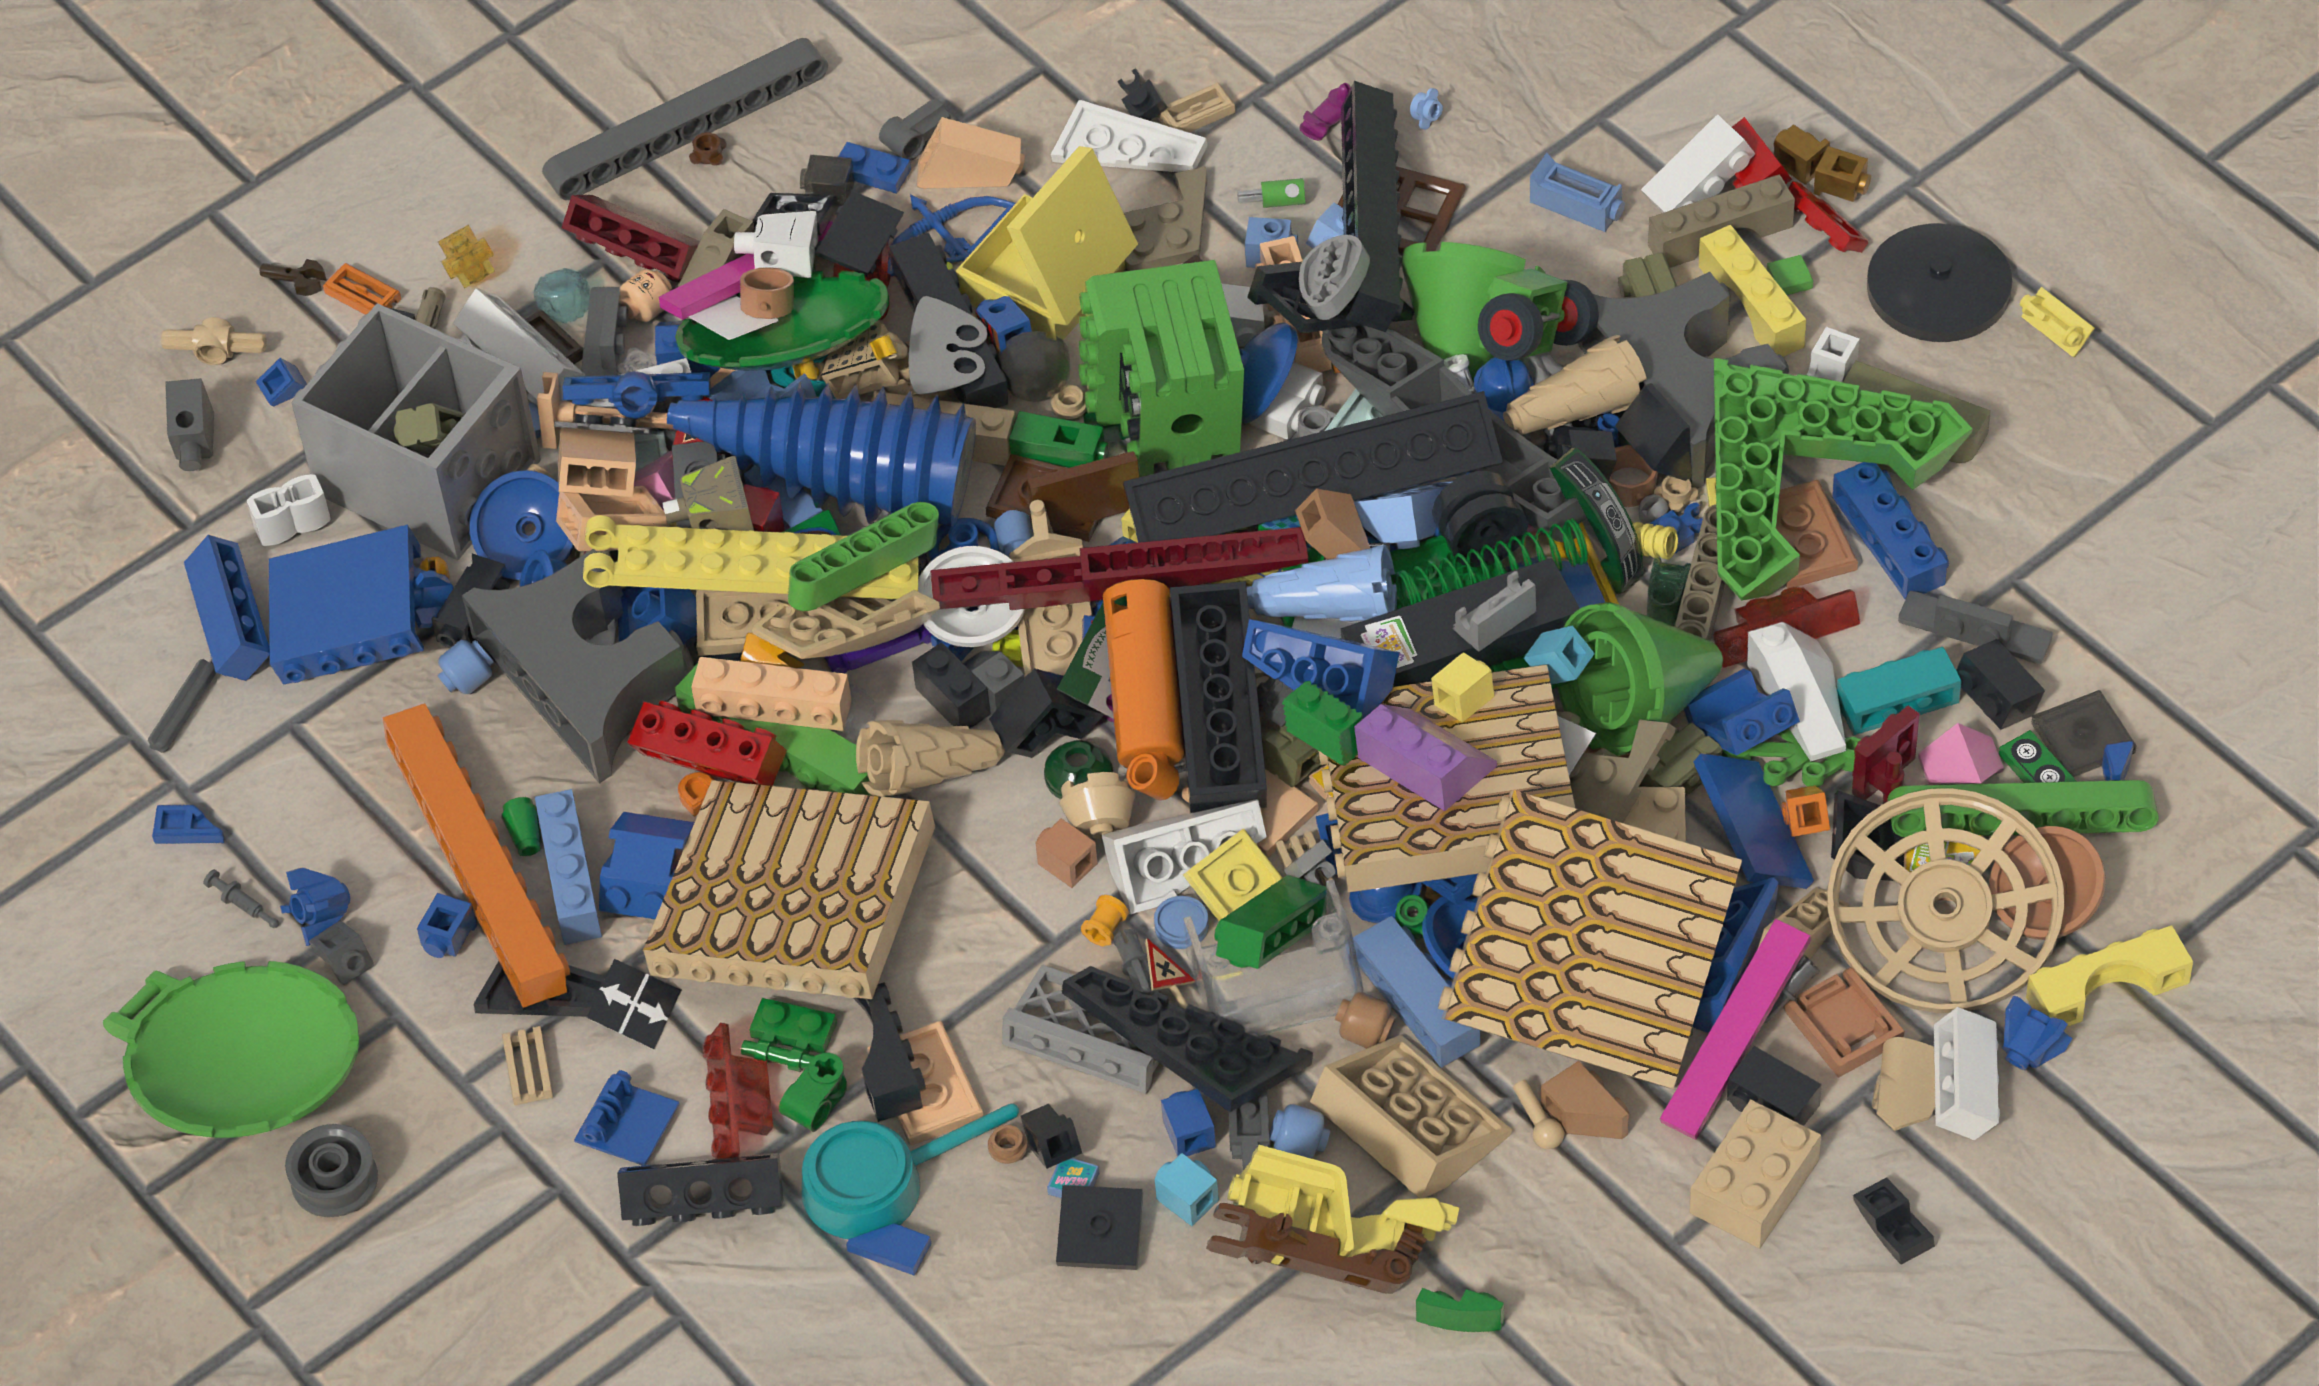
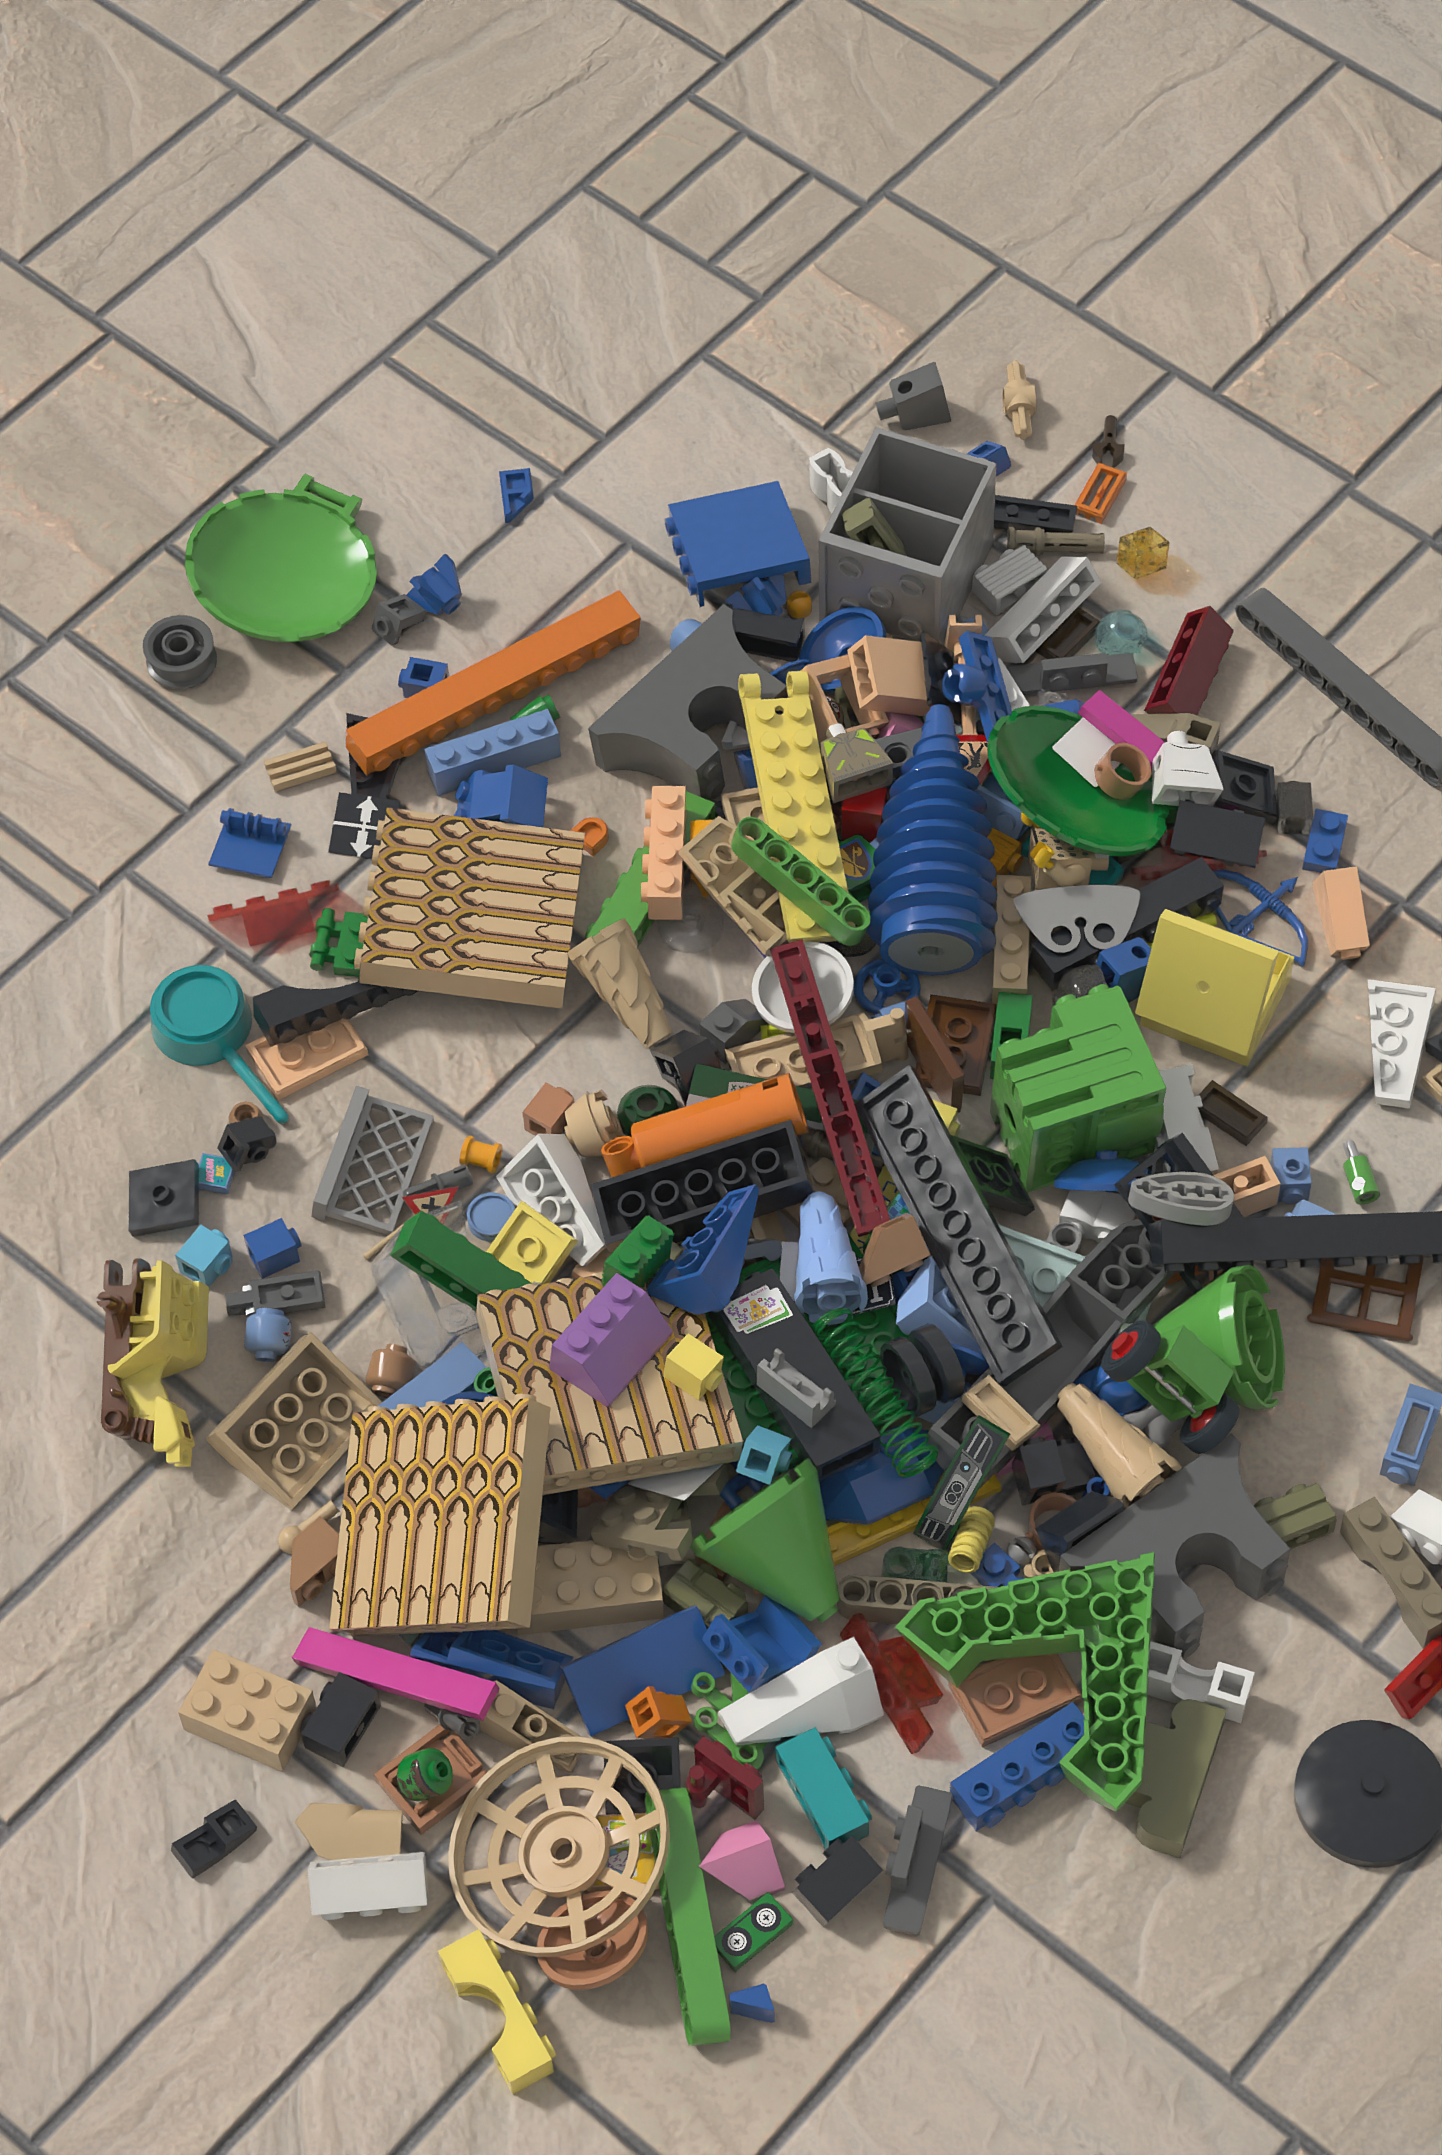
camera: 80 degrees right, 5 degrees up
(182, 706) = (634, 463): dark grey axle -> none
(227, 608) = (728, 465): blue brick -> none
(233, 894) = (448, 536): dark grey piece -> none
(642, 294) = (1127, 690): light nougat head -> none
(707, 149) = (1320, 704): reddish brown plate -> none
(707, 745) = (618, 824): red brick -> none
(760, 1170) = (177, 901): black brick -> none
(815, 1092) = (280, 967): green piece -> none
(892, 1247) = (139, 1054): blue tile -> none
(908, 135) = (1374, 865): dark grey piece -> none
(951, 687) = (722, 983): black brick -> none
(1173, 230) = (1291, 1084): dark tan wing -> none
(1190, 1042) = (339, 1241): black wing -> none
(1472, 1314) = (91, 1486): green slope -> none
(1530, 467) = (998, 1407): none -> tan tile
(1770, 310) = (1282, 1626): light yellow arch -> none
(1791, 274) = (1349, 1648): bright green tile -> none
(1854, 1010) = (425, 1774): none -> green head
(2032, 1036) = (418, 1939): blue brick -> none
(2056, 321) = (1320, 1919): light yellow hinge -> none
(2080, 731) = (799, 1973): clear smoke plate -> none

